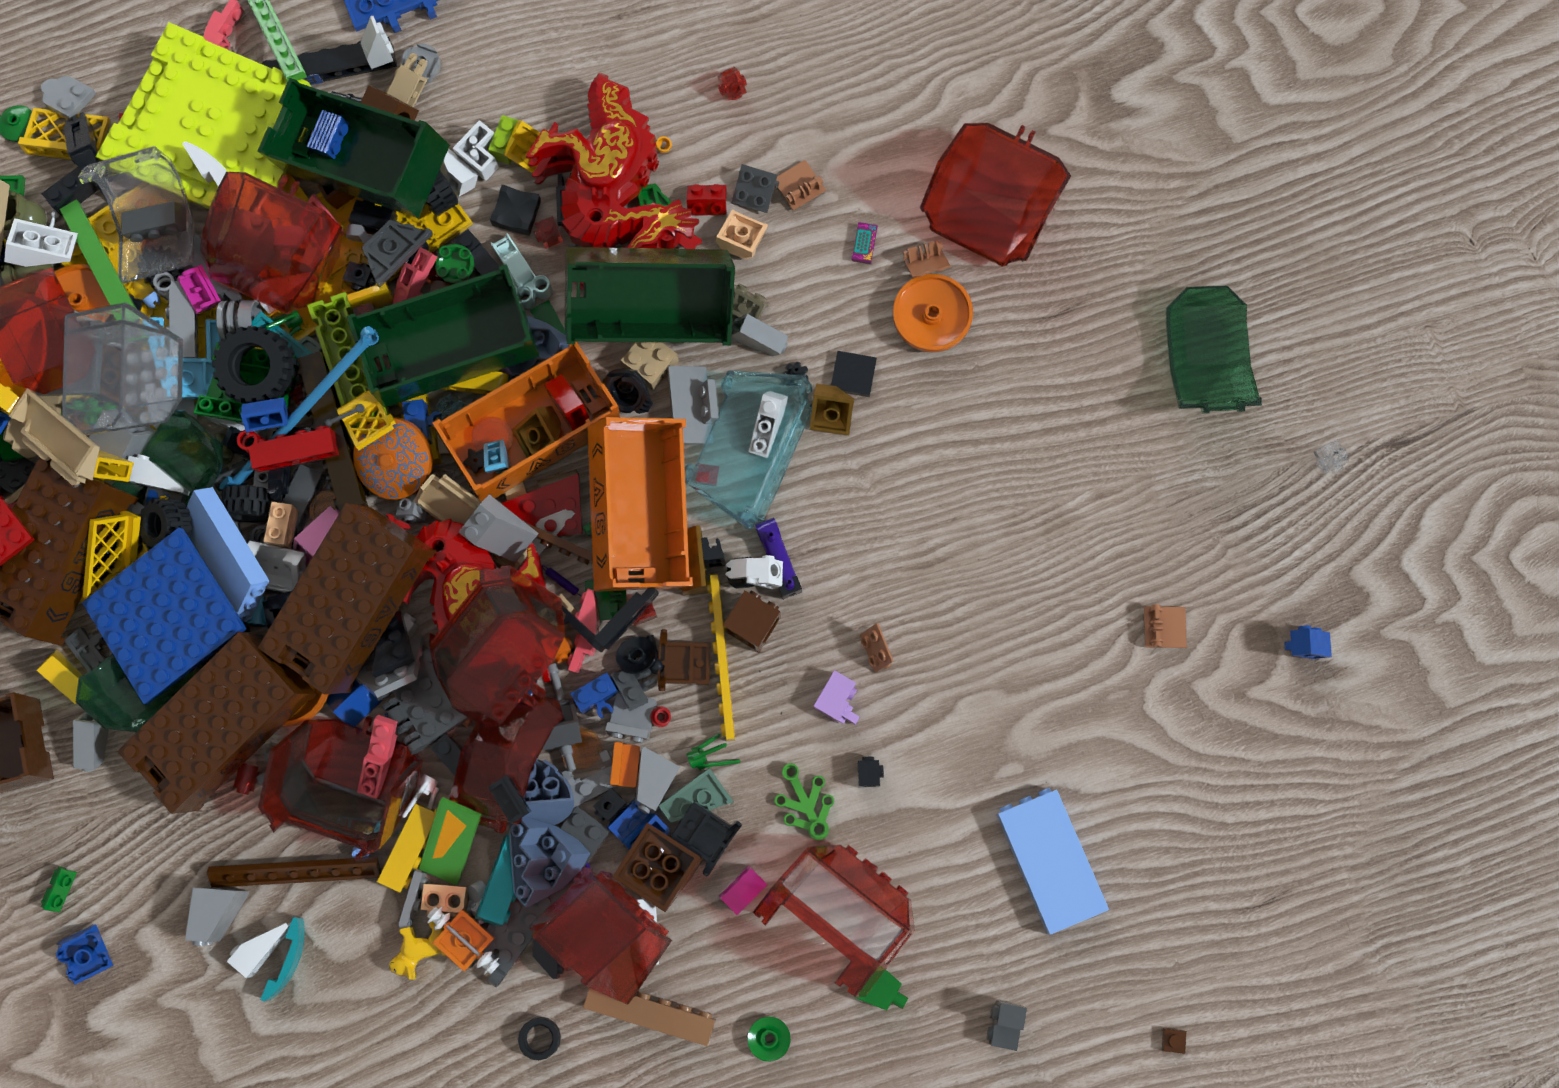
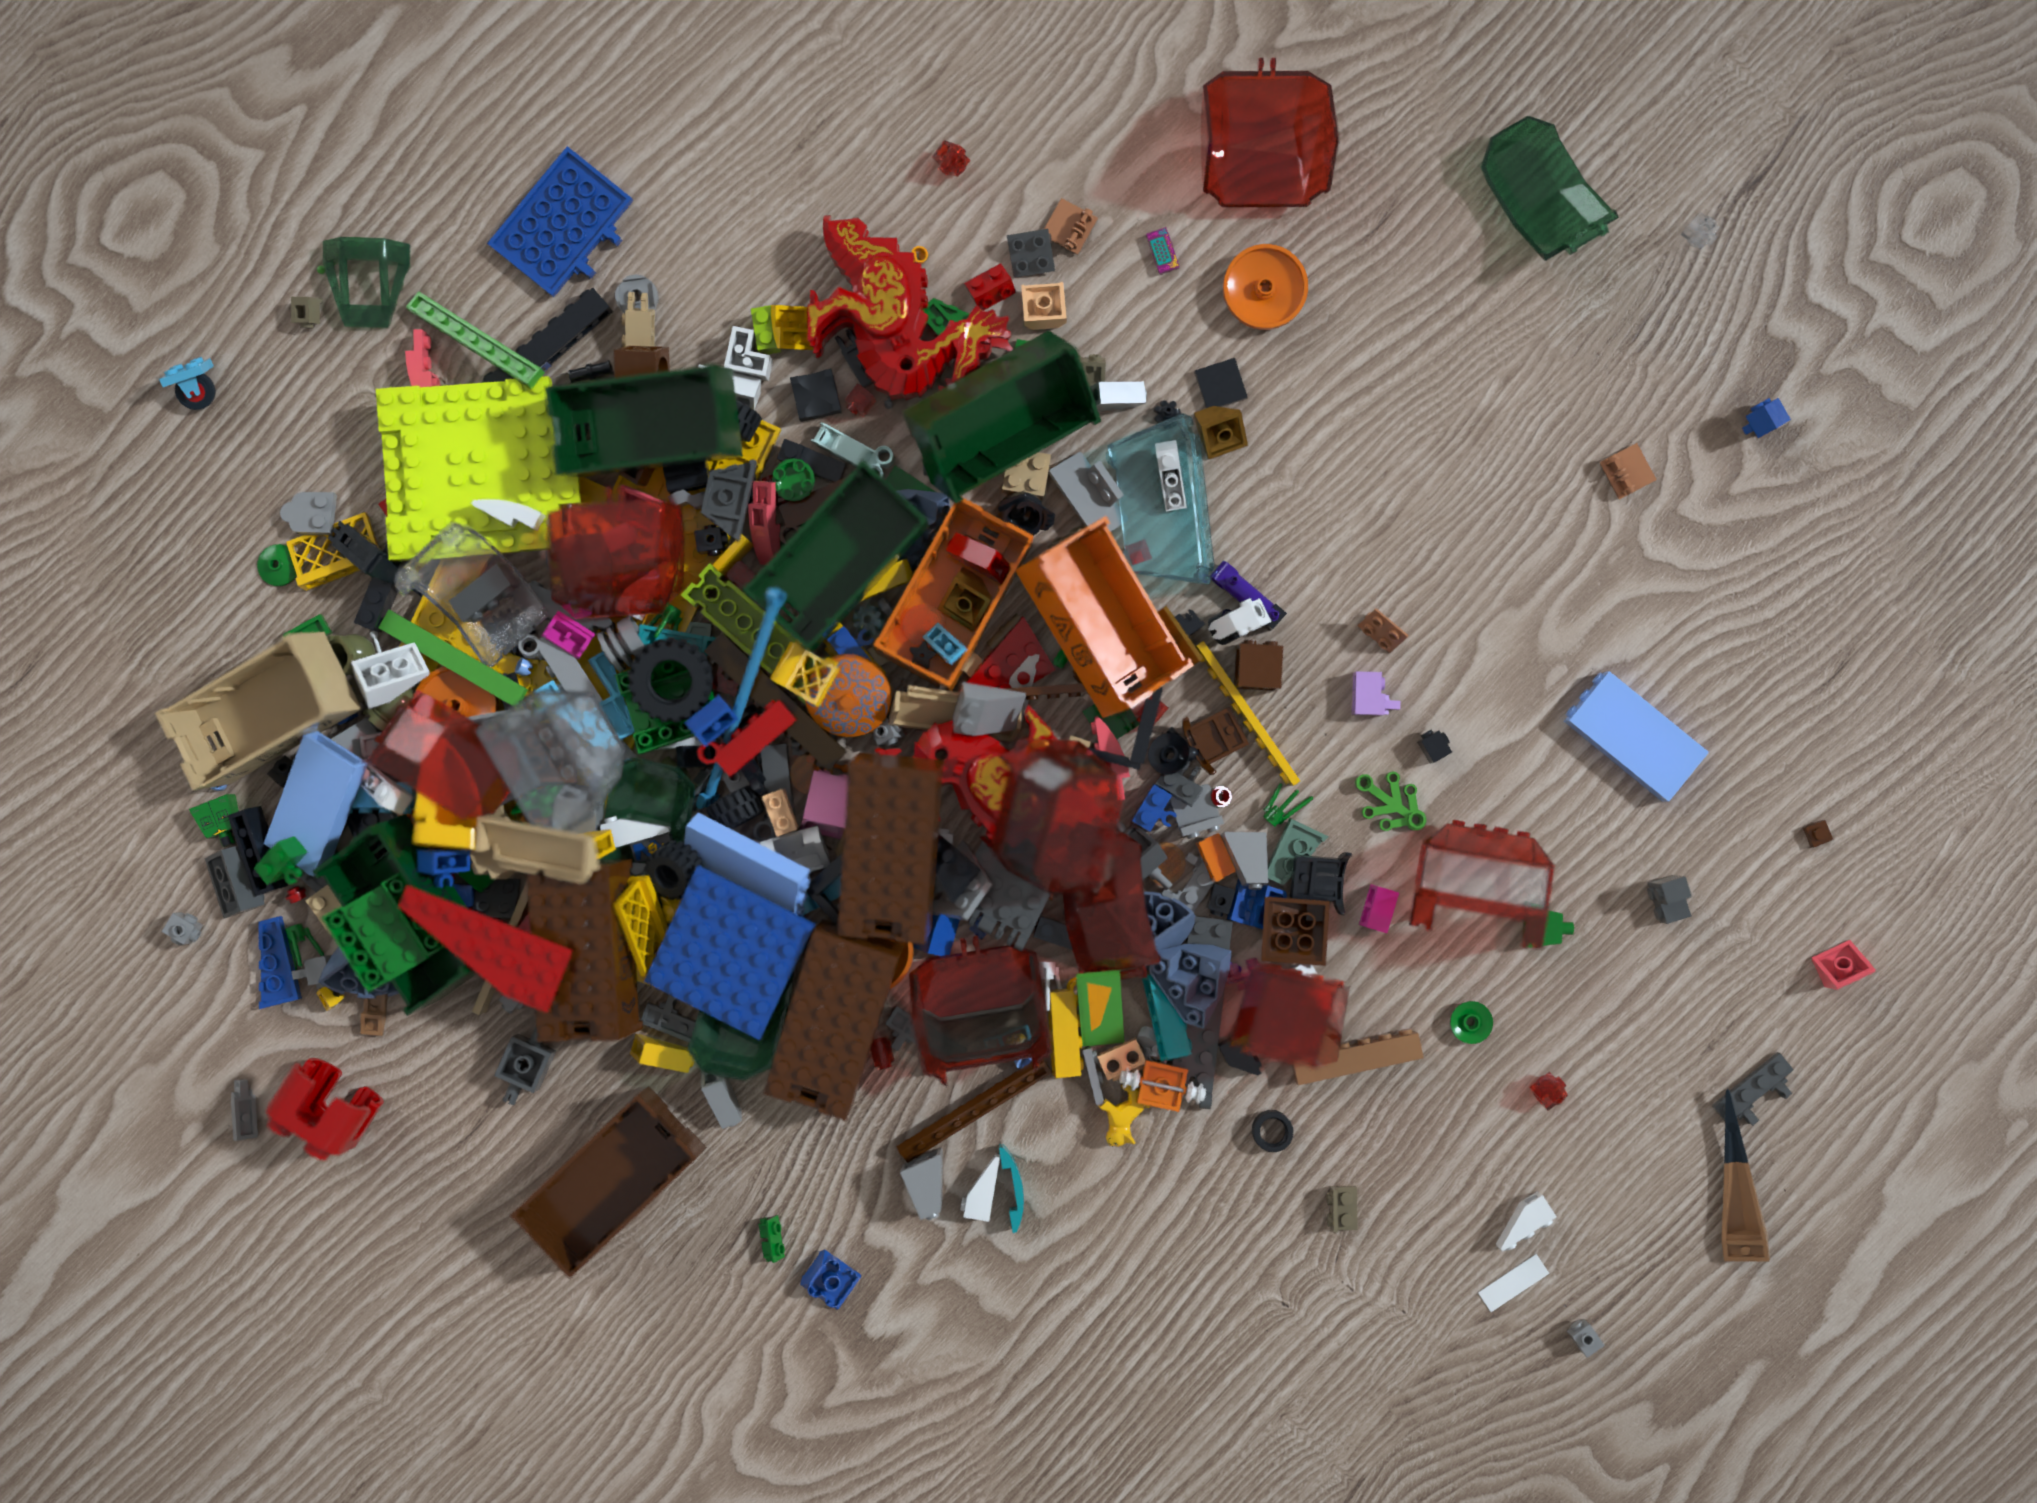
camera: 30 degrees left, 10 degrees up
(328, 134) = (606, 420): blue brick -> none
(359, 408) = (793, 667): dark grey hinge -> none
(376, 44) = (592, 304): white slope -> none
(378, 757) = (991, 970): coral slope -> none
(509, 799) = (1143, 945): black hinge -> none
(563, 582) = (1063, 723): dark purple piece -> none
(925, 262) = (1232, 239): nougat hinge -> none

